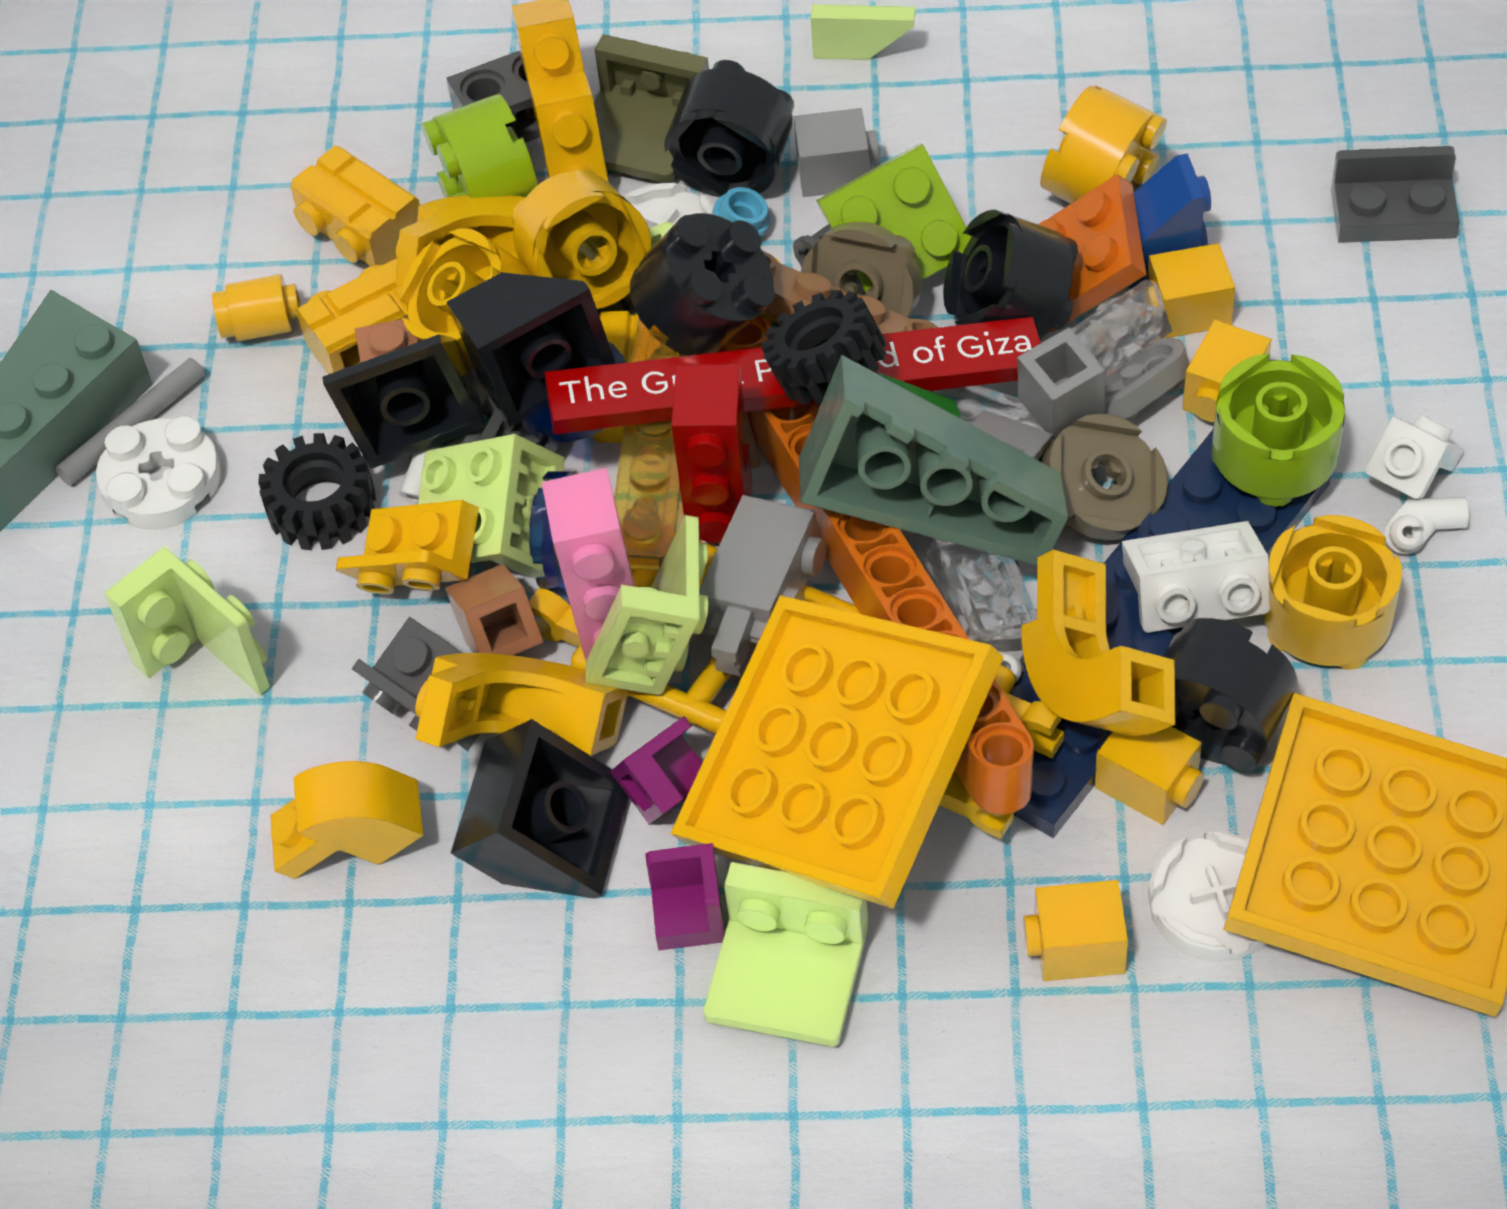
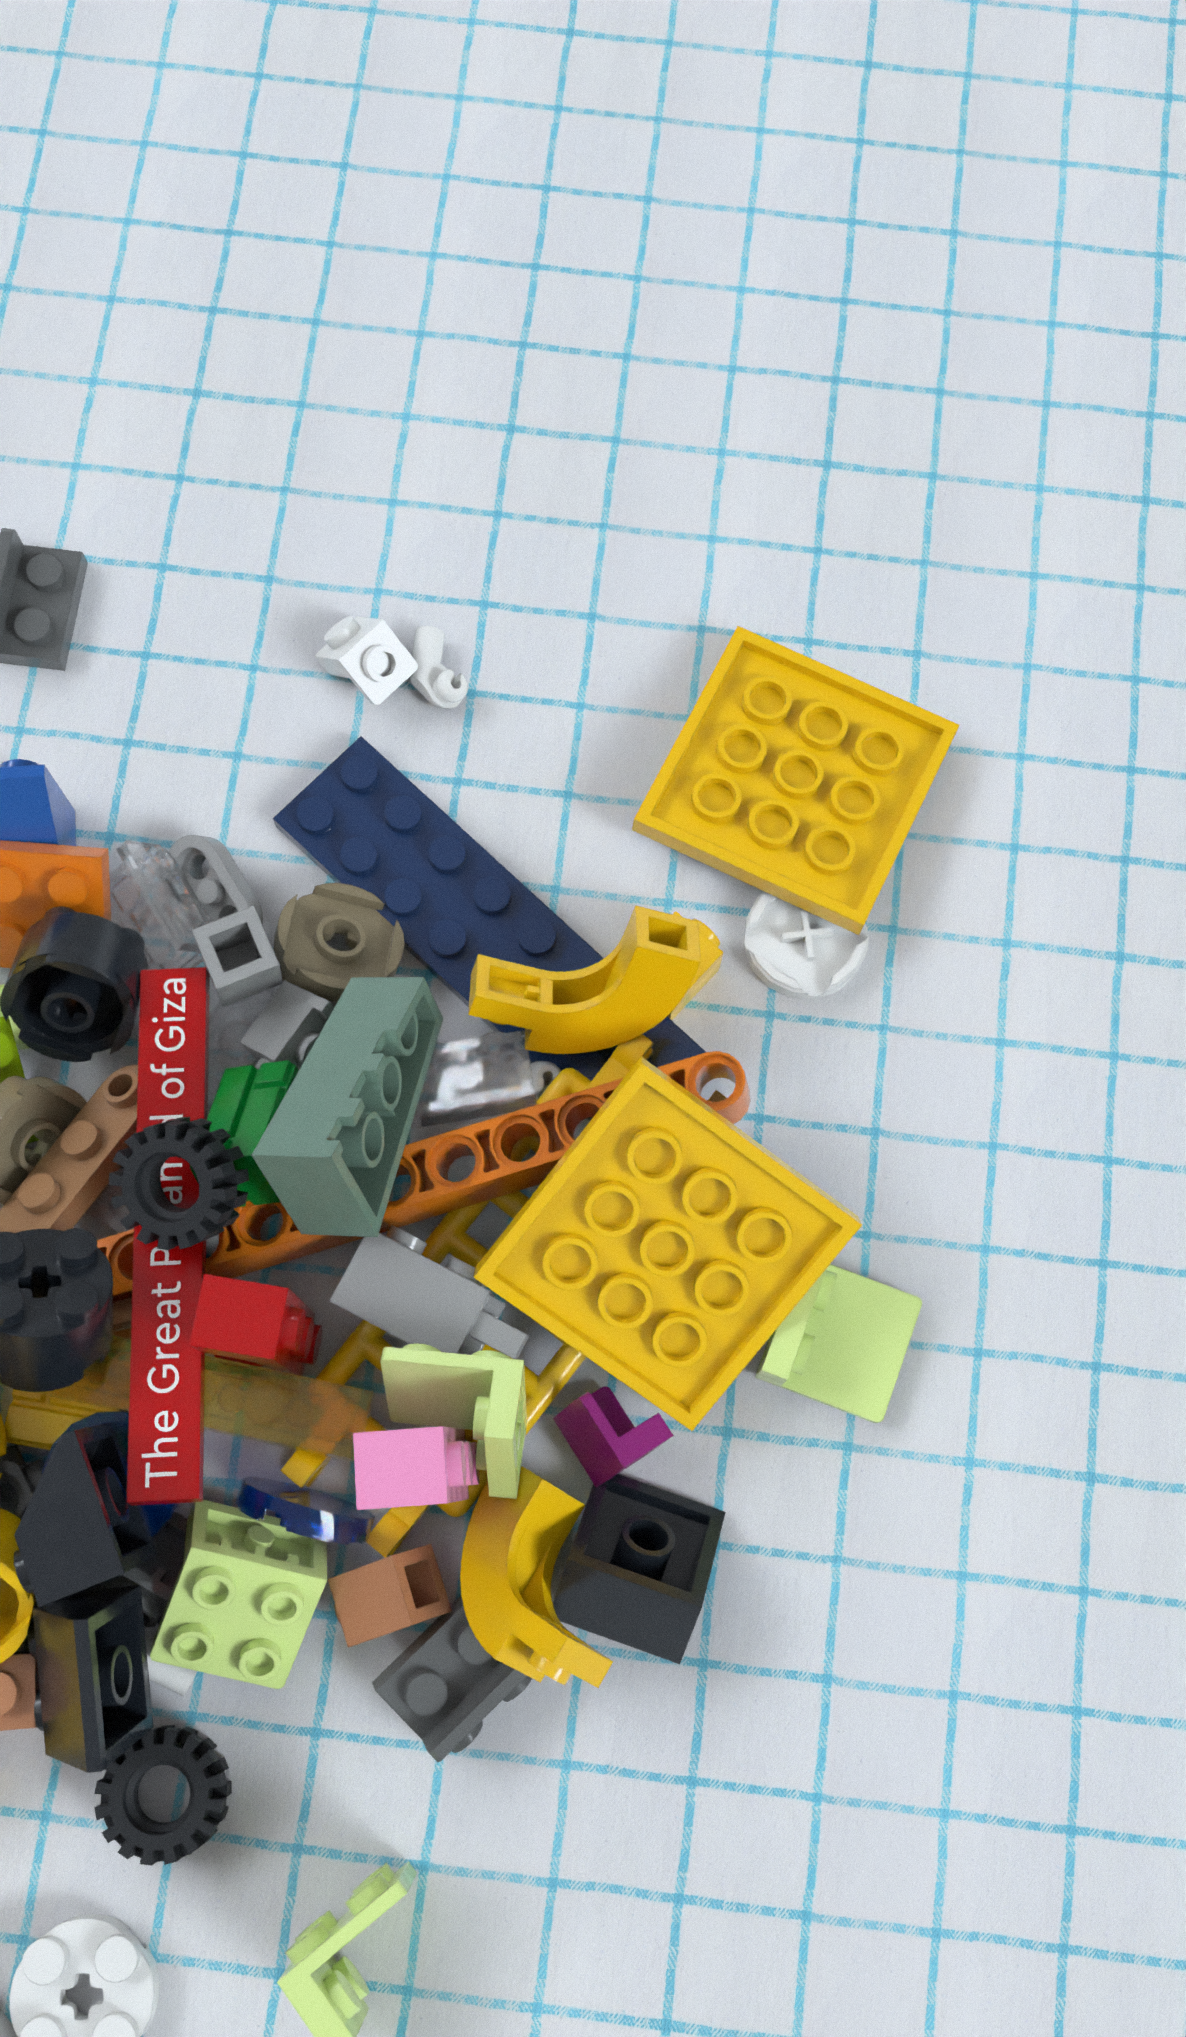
camera: 90 degrees left, 20 degrees up
(347, 809) = (618, 1779): yellow brick -> none
(414, 547) = (288, 1681): yellow bracket -> none
(685, 896) = (757, 1424): magenta panel -> none
(1077, 930) = (840, 1062): yellow brick -> none
(1193, 288) = (108, 810): yellow brick -> none
(1198, 575) = (481, 875): white bracket -> none
(1217, 354) = (227, 805): yellow brick -> none
(1228, 690) = (621, 872): black brick -> none
(1278, 427) = (328, 729): lime brick -> none
(1332, 591) = (488, 759): yellow brick -> none

